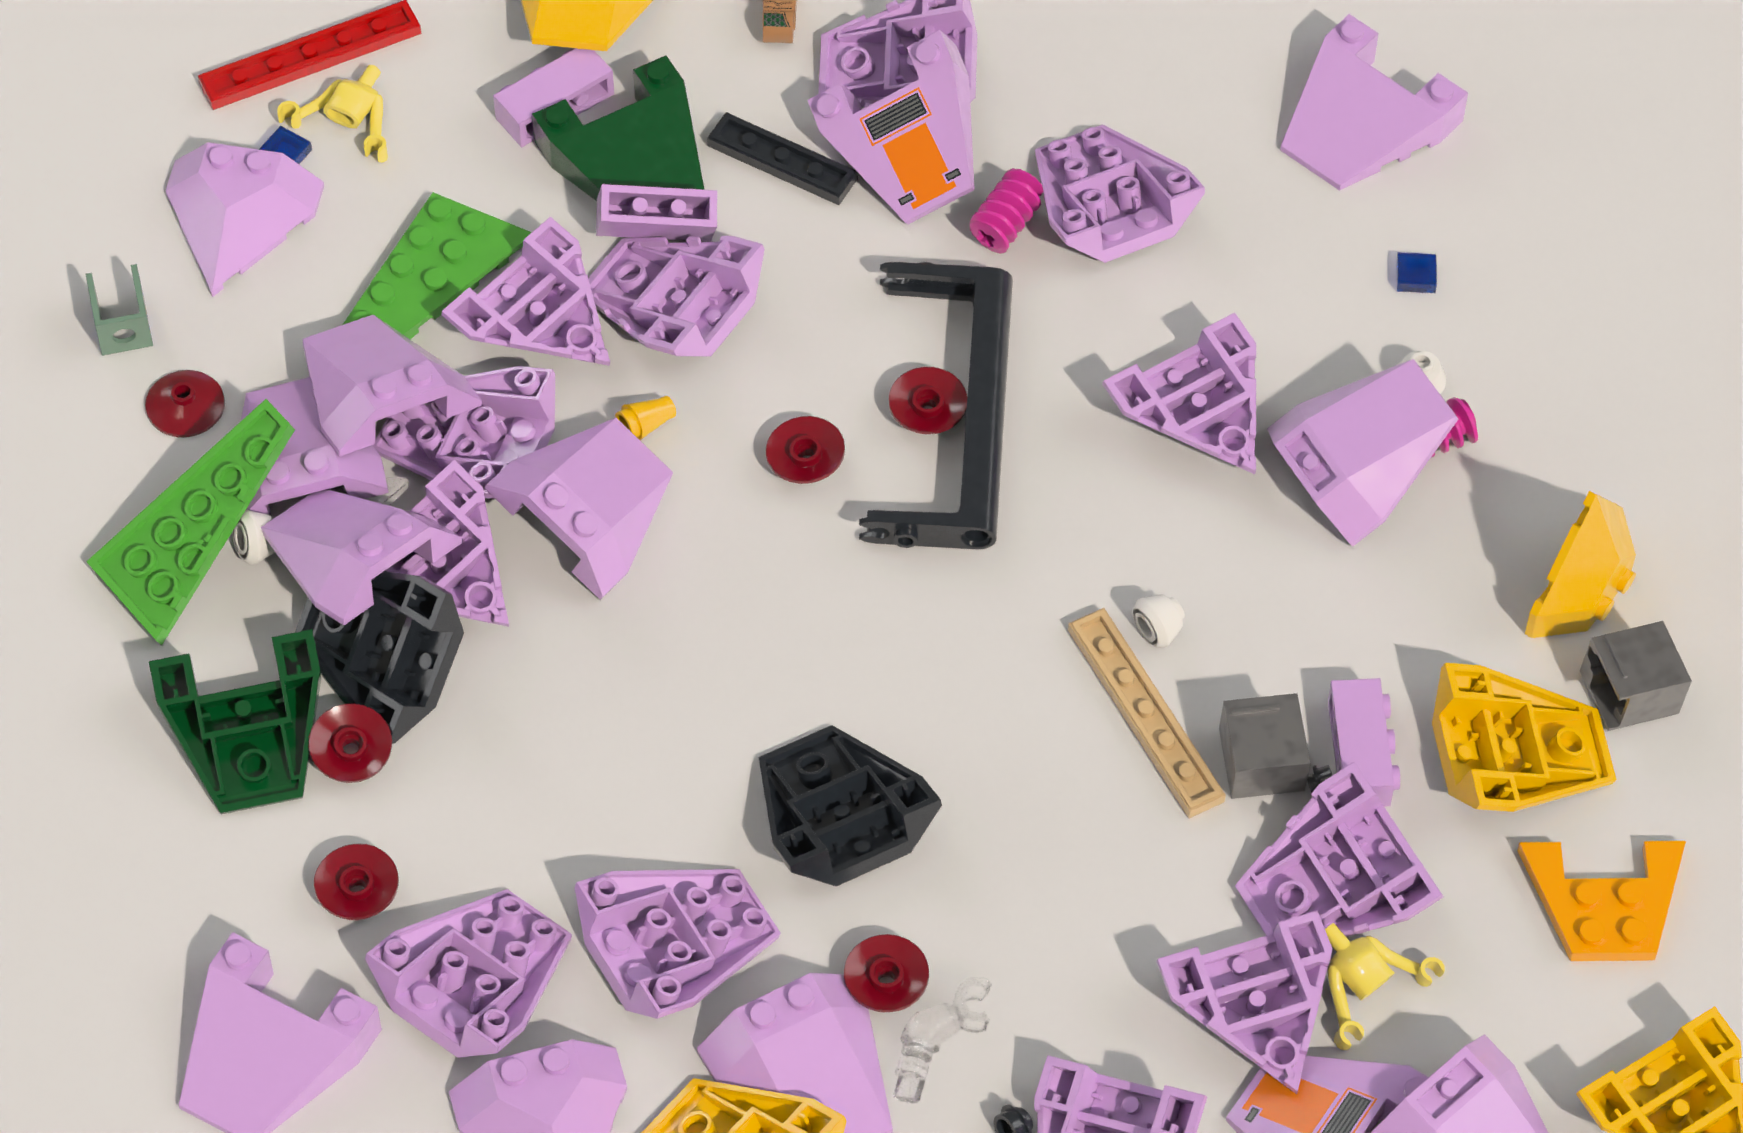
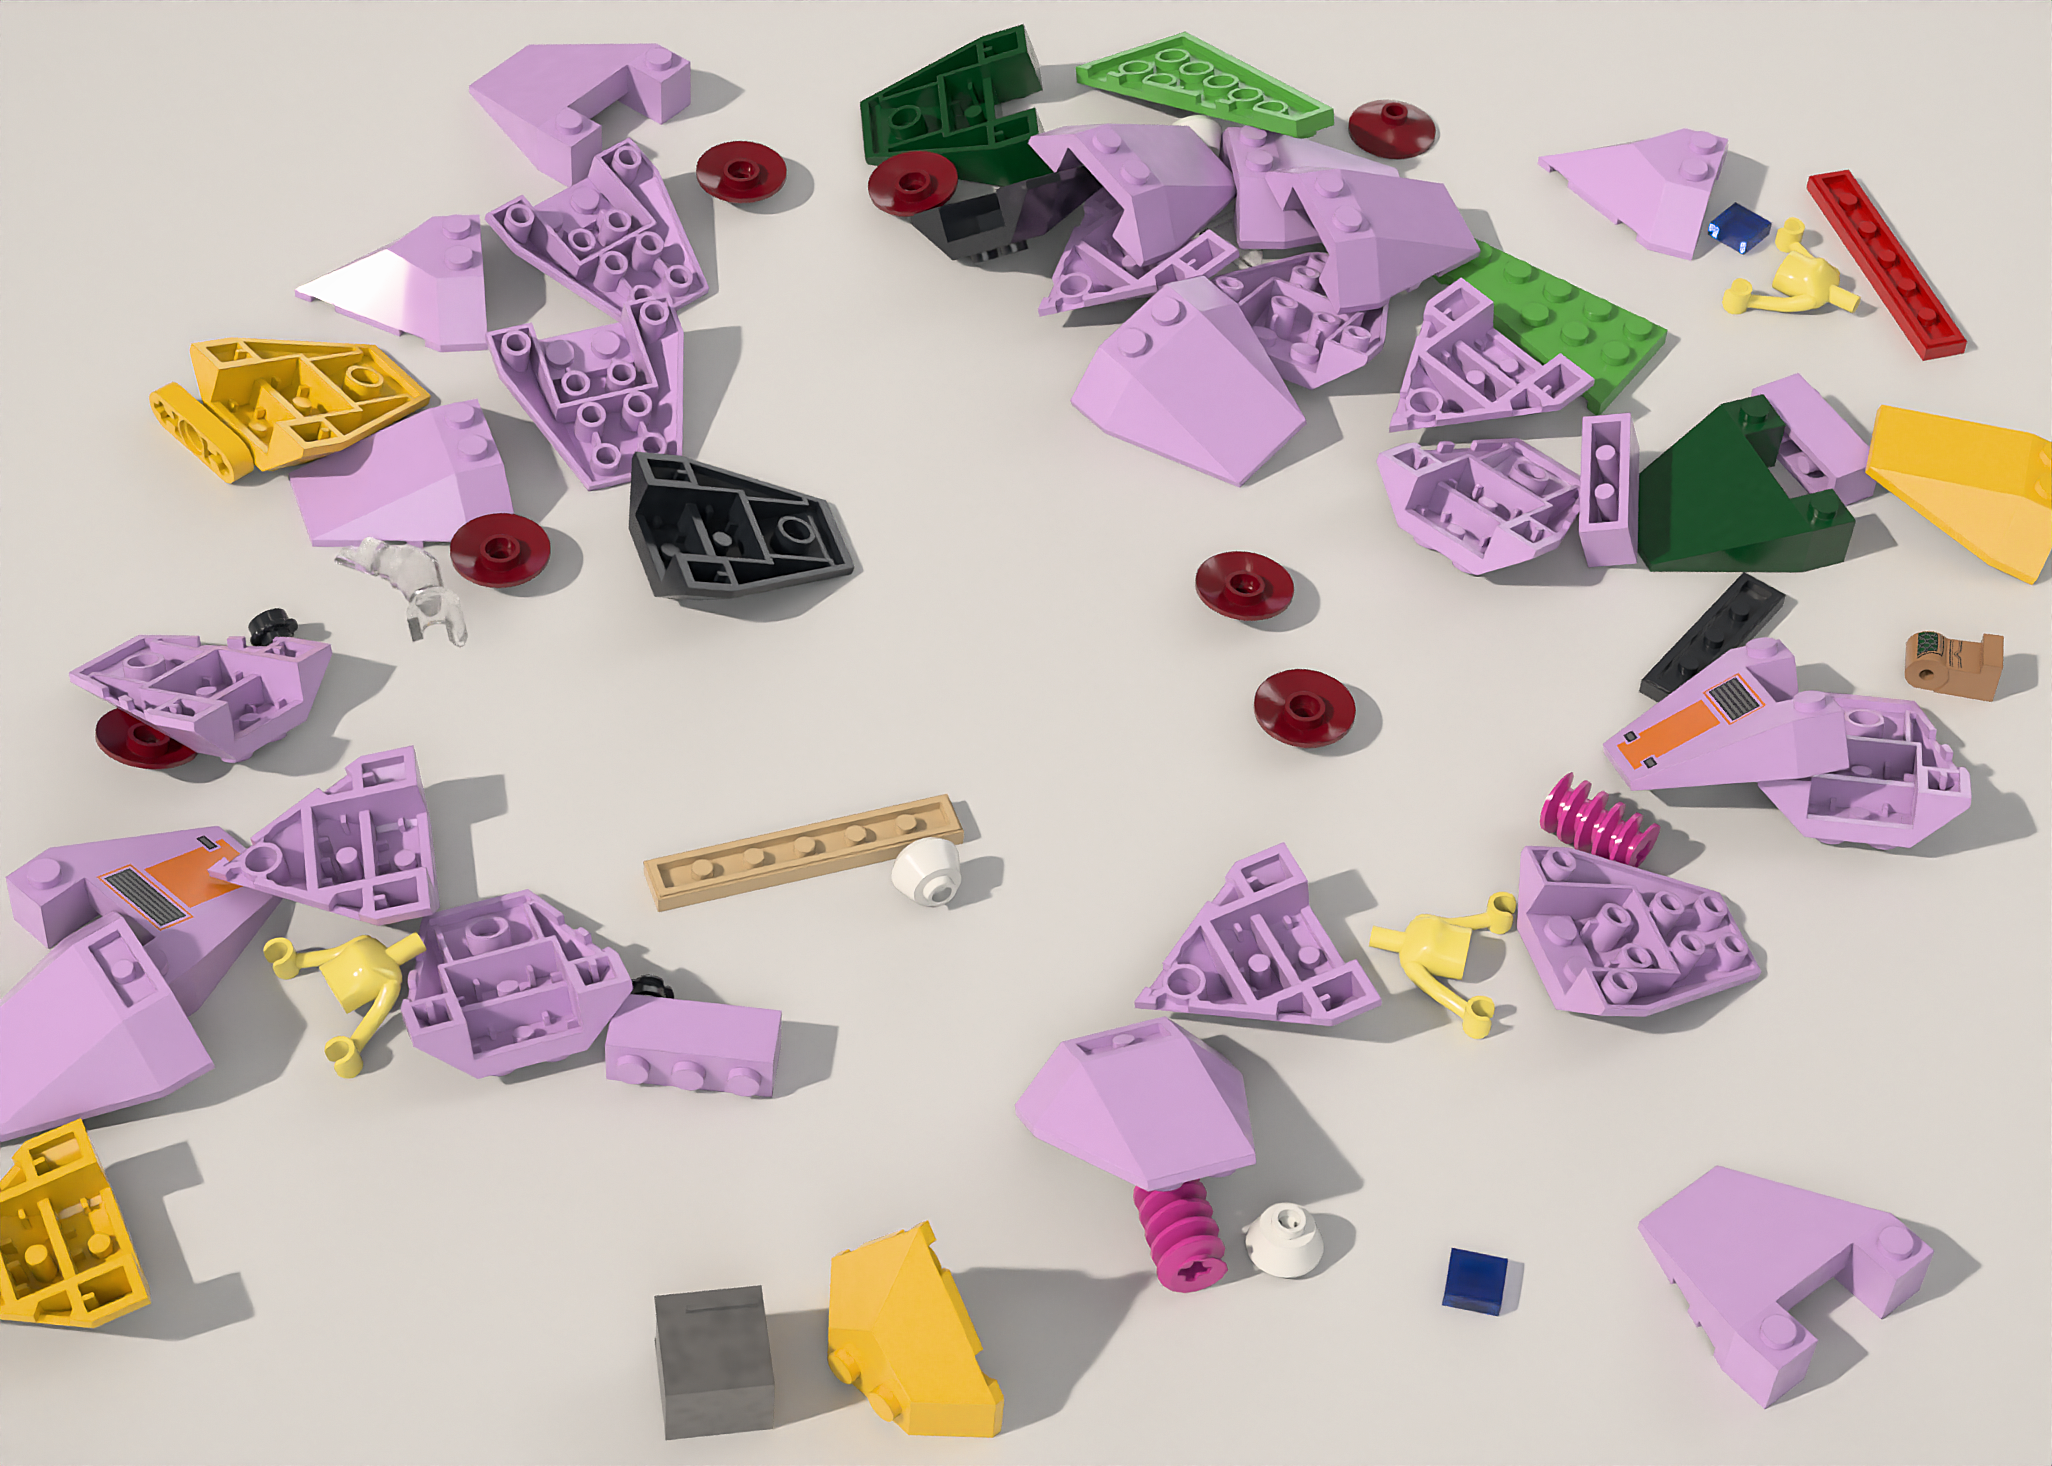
camera: 95 degrees right, 10 degrees down
(108, 327) = (1509, 76): sand green piece -> none
(646, 416) = (1315, 459): yellow cone -> none
(977, 515) = (1292, 755): black piece -> none
(1140, 303) = (1440, 948): none -> light yellow piece
(1264, 745) = (706, 930): flat silver piece -> none
(1515, 742) = (638, 1206): yellow wedge -> none
(1606, 915) = (366, 1270): light orange wing -> none

